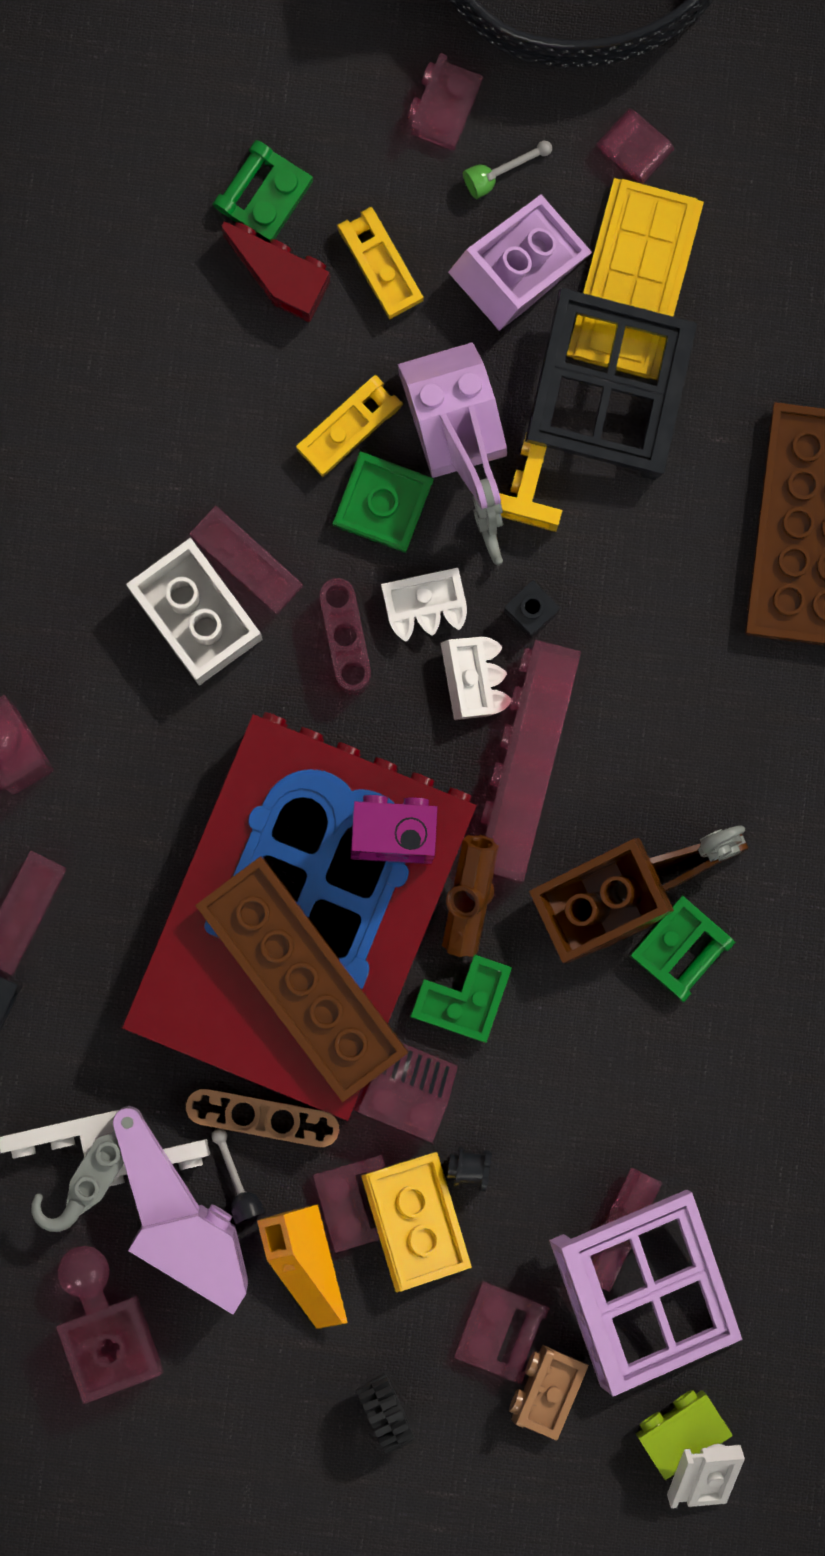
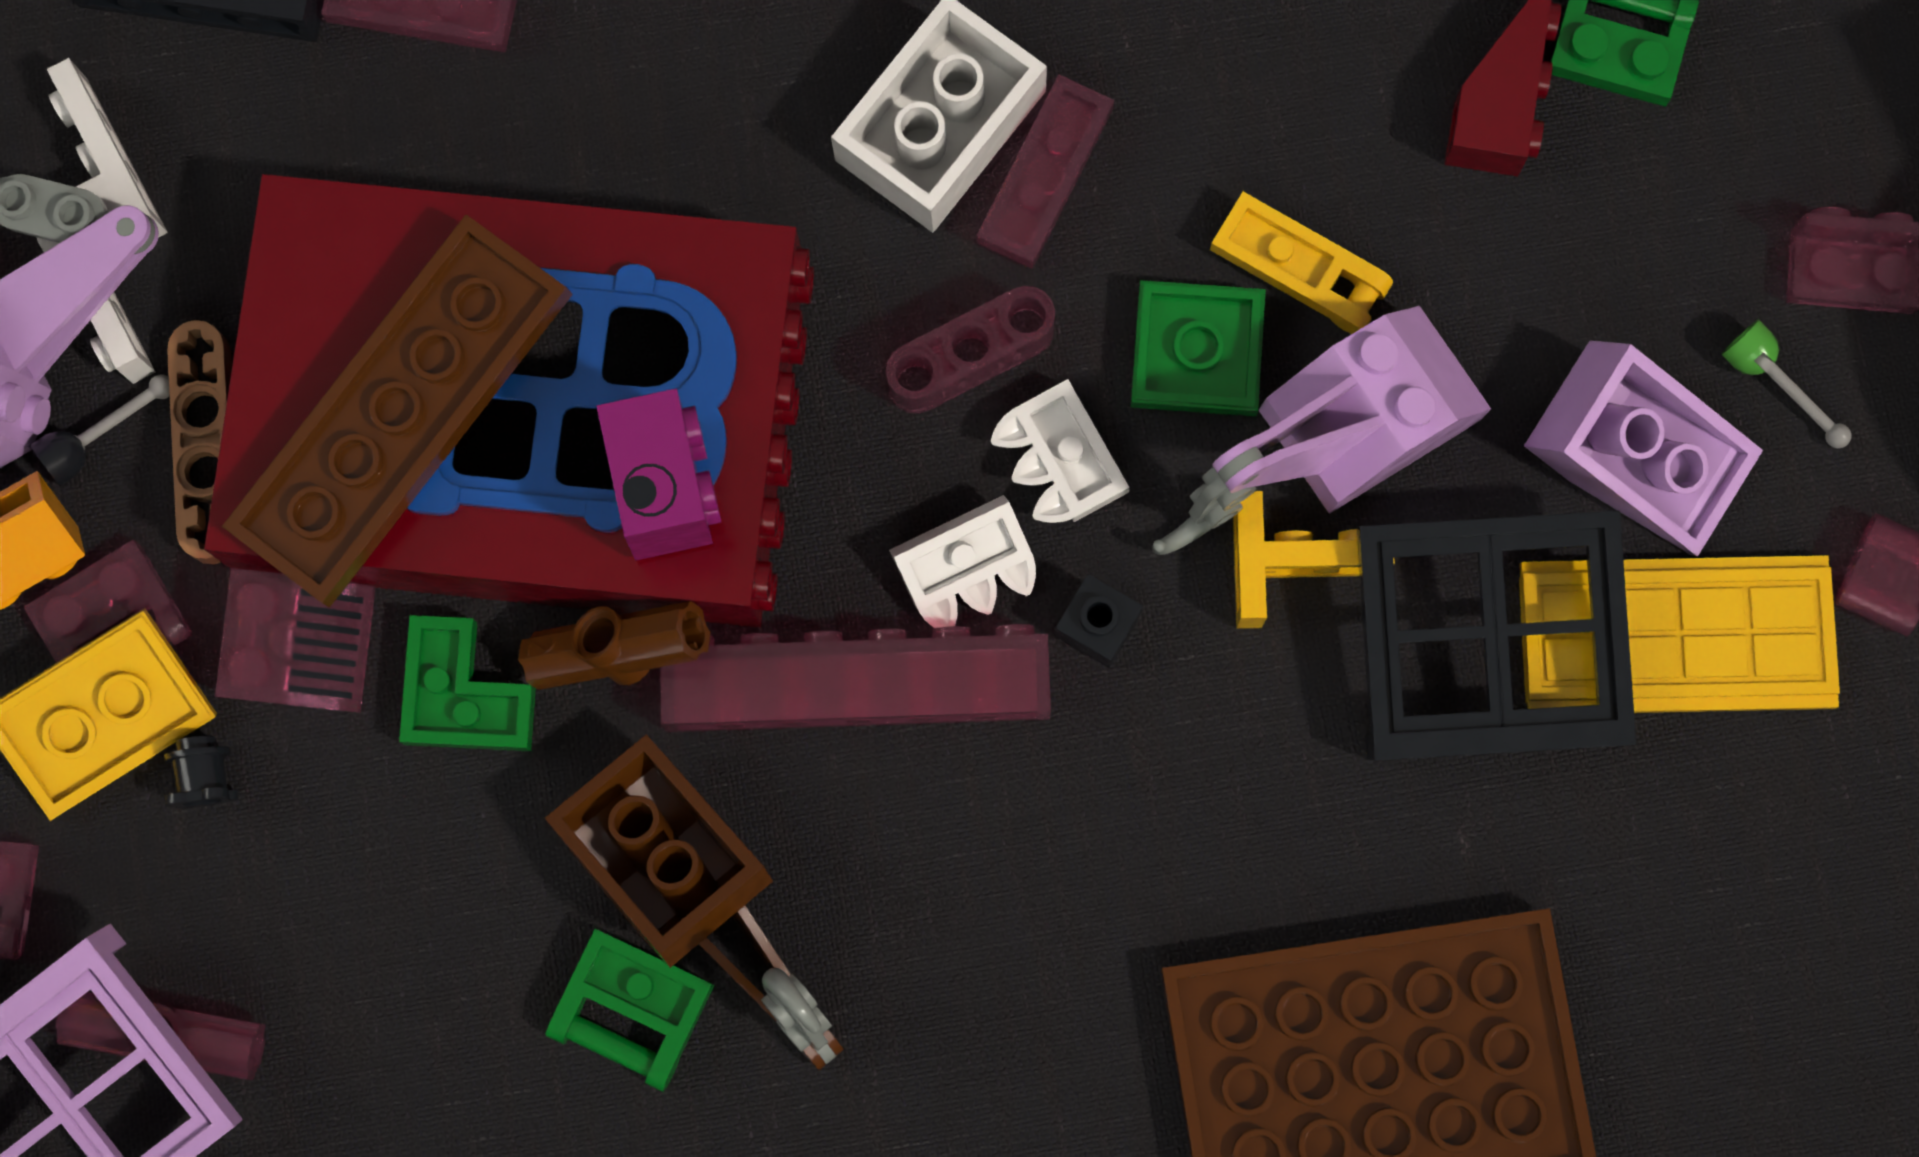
camera: 85 degrees right, 5 degrees down
(381, 264) = (1568, 239): yellow plate -> none

